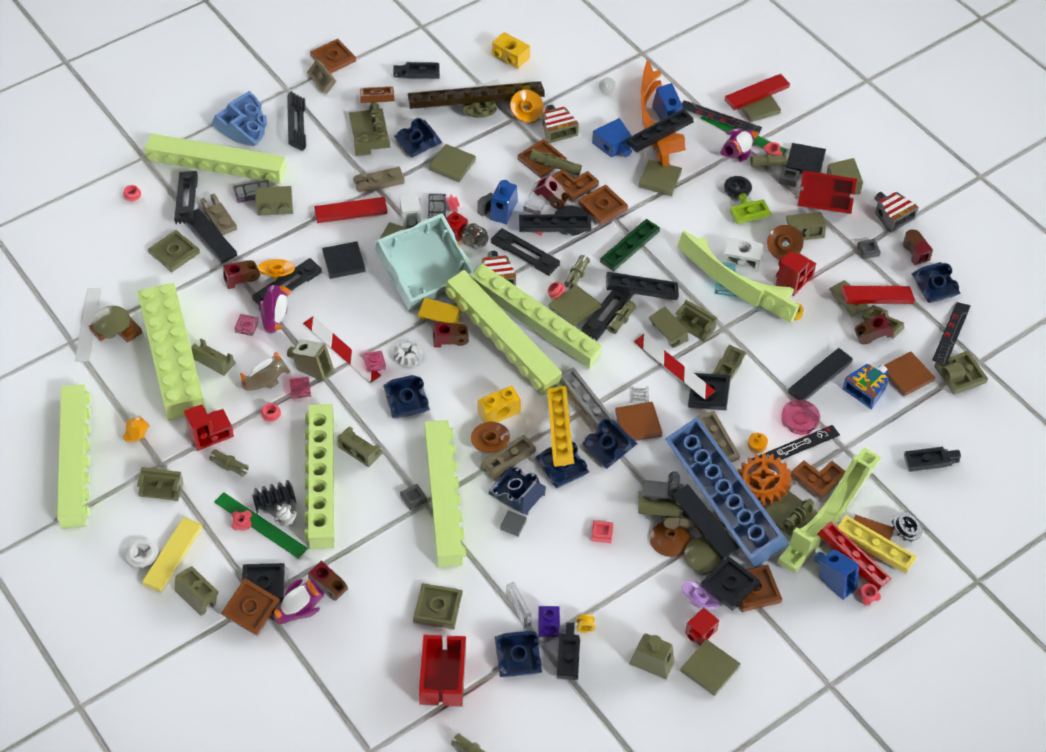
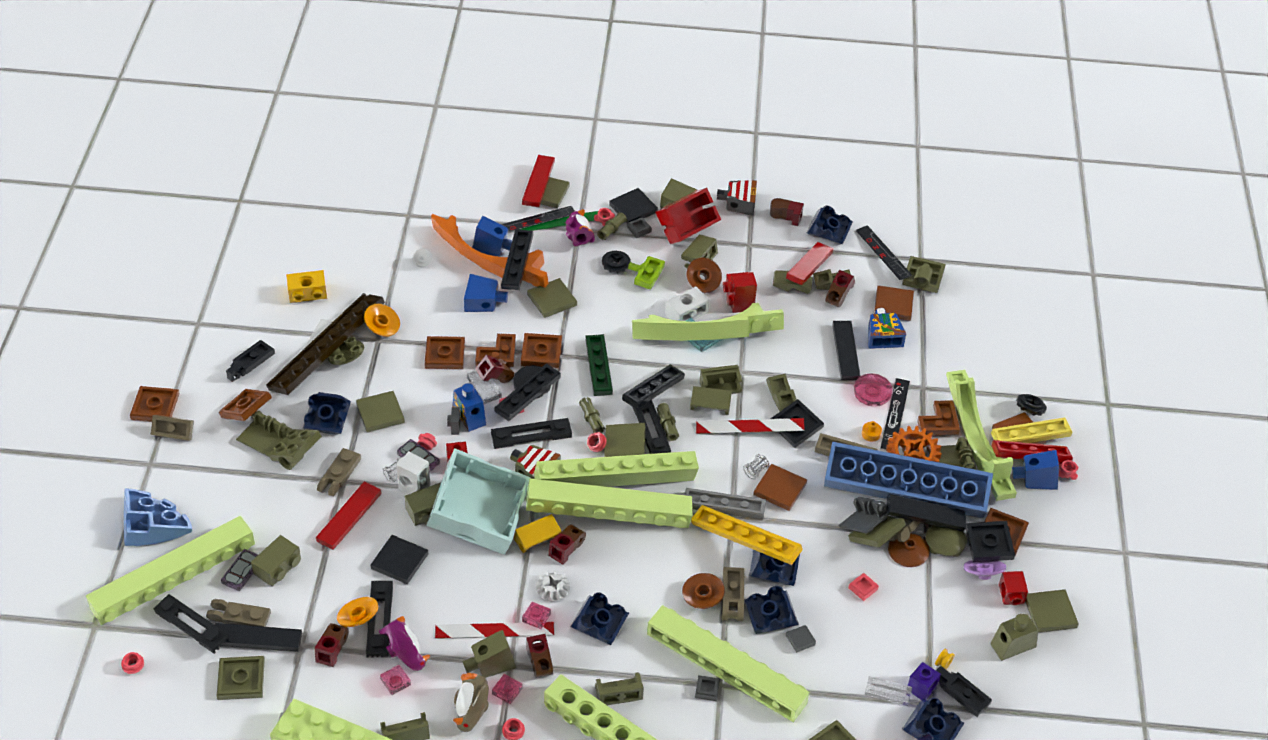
camera: 50 degrees left, 5 degrees down
(297, 104) = (184, 469): black container -> none
(340, 384) = (539, 655): none -> leg
(474, 236) = (483, 449): clear smoke head -> none
(499, 405) = (677, 562): yellow brick -> none
(553, 161) = (458, 347): olive pin -> none
(559, 124) = (424, 315): torso -> none
(609, 442) = (787, 517): dark blue slope -> none
(868, 248) = (757, 237): dark grey tile -> none
(931, 458) = (983, 347): black hinge -> none

